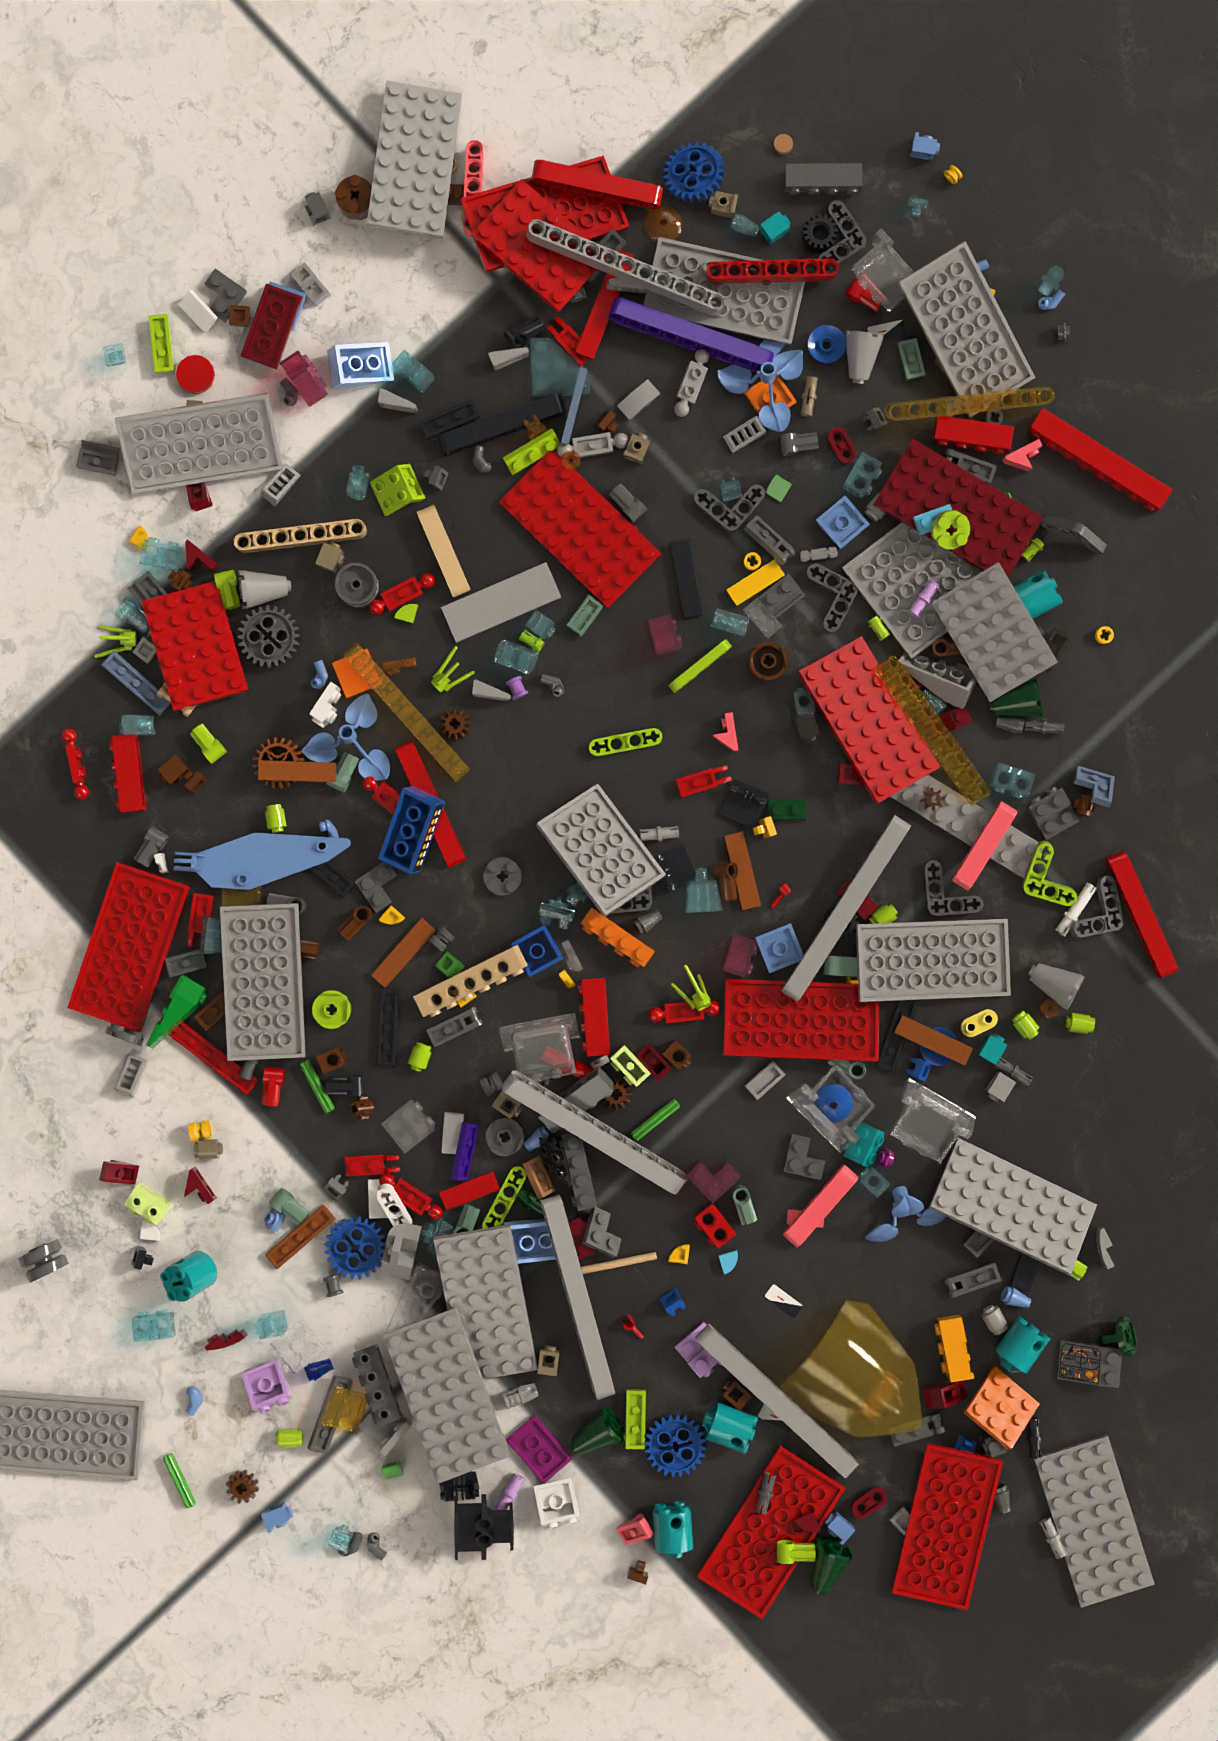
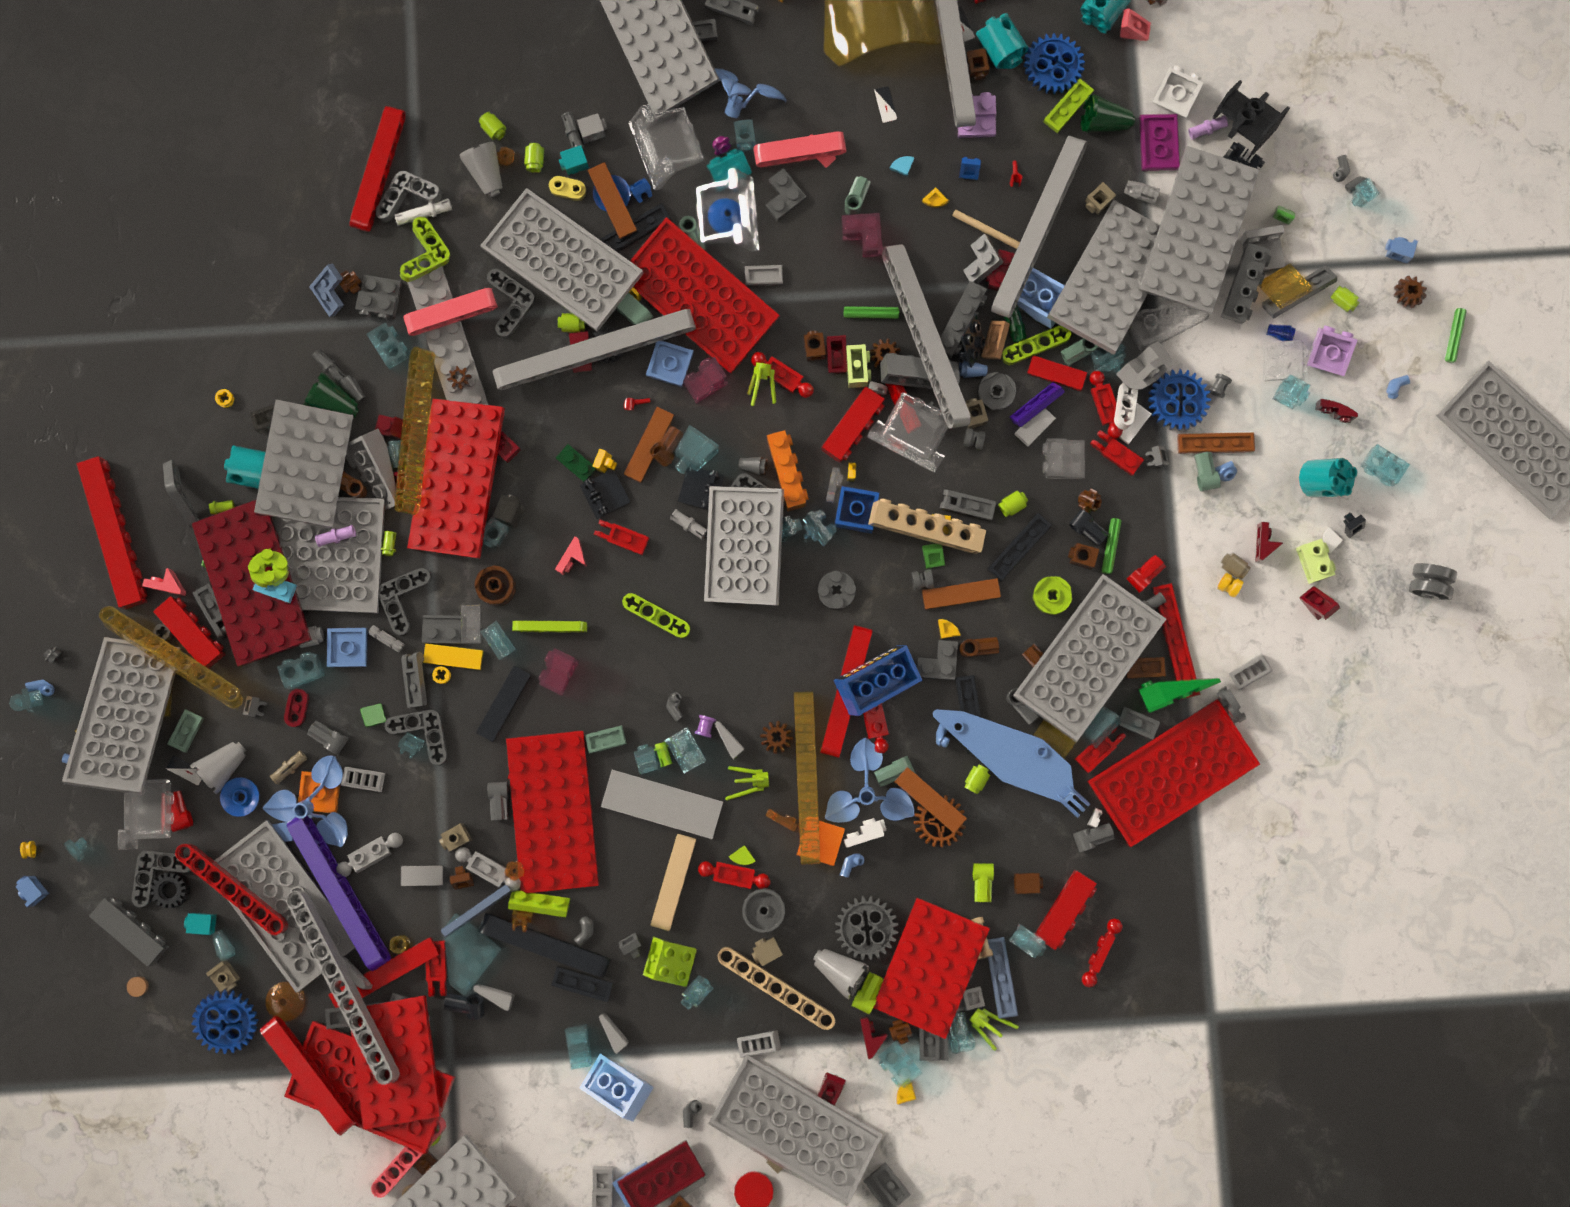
camera: 140 degrees left, 5 degrees down
(195, 781) = (1017, 861): reddish brown tile -> none
(302, 374) = (669, 1113): clear pink brick -> none
(616, 339) = (393, 944): none -> clear yellow bush
(718, 1222) = (888, 198): red brick -> none

